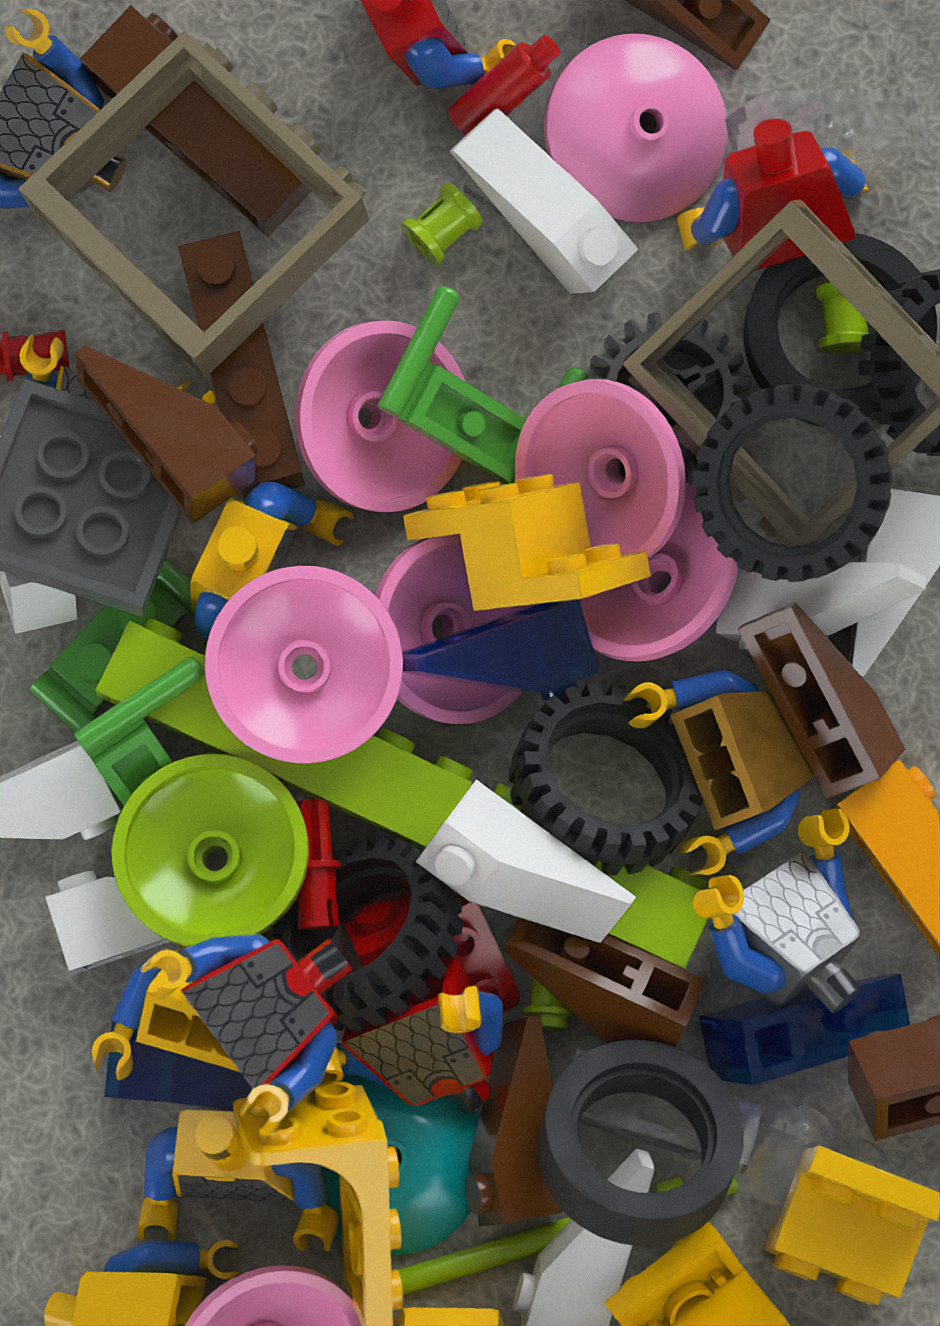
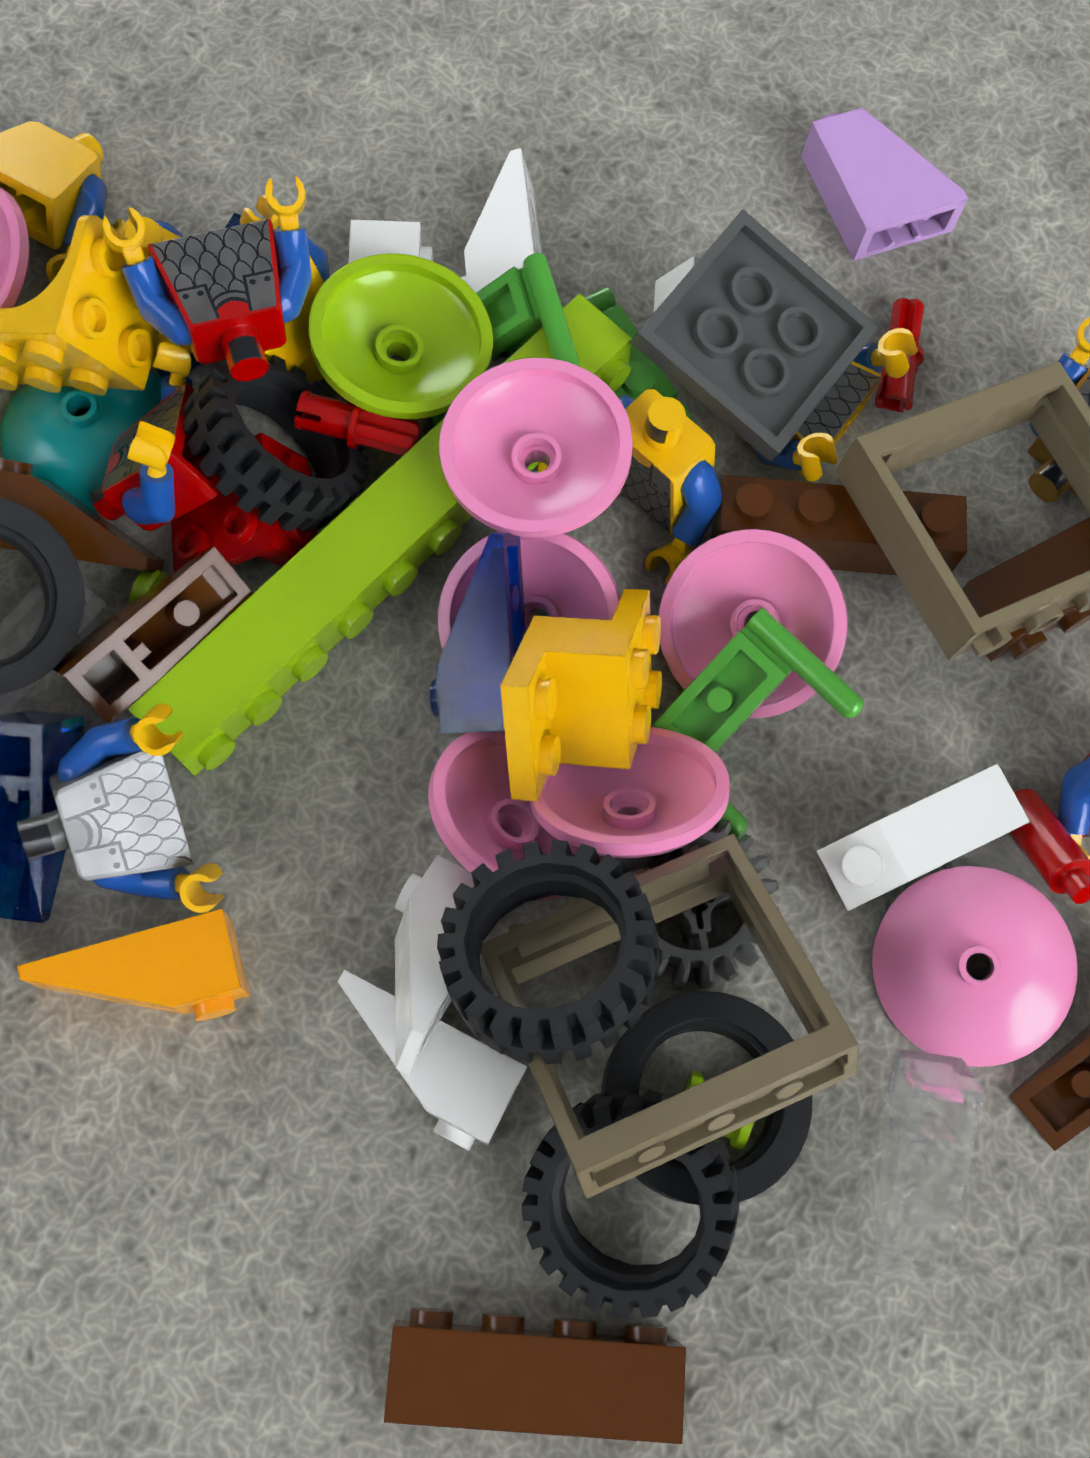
camera: 100 degrees right, 10 degrees down
(176, 435) = (773, 412): reddish brown slope -> none
(442, 223) = (923, 748): lime bush -> none
(519, 868) = (281, 564): white slope -> none
(583, 833) = (402, 734): black tyre -> none
(738, 755) = (304, 829): pearl gold torso -> none
(764, 180) = (890, 1083): red torso -> none
(822, 701) = (317, 932): reddish brown slope -> none

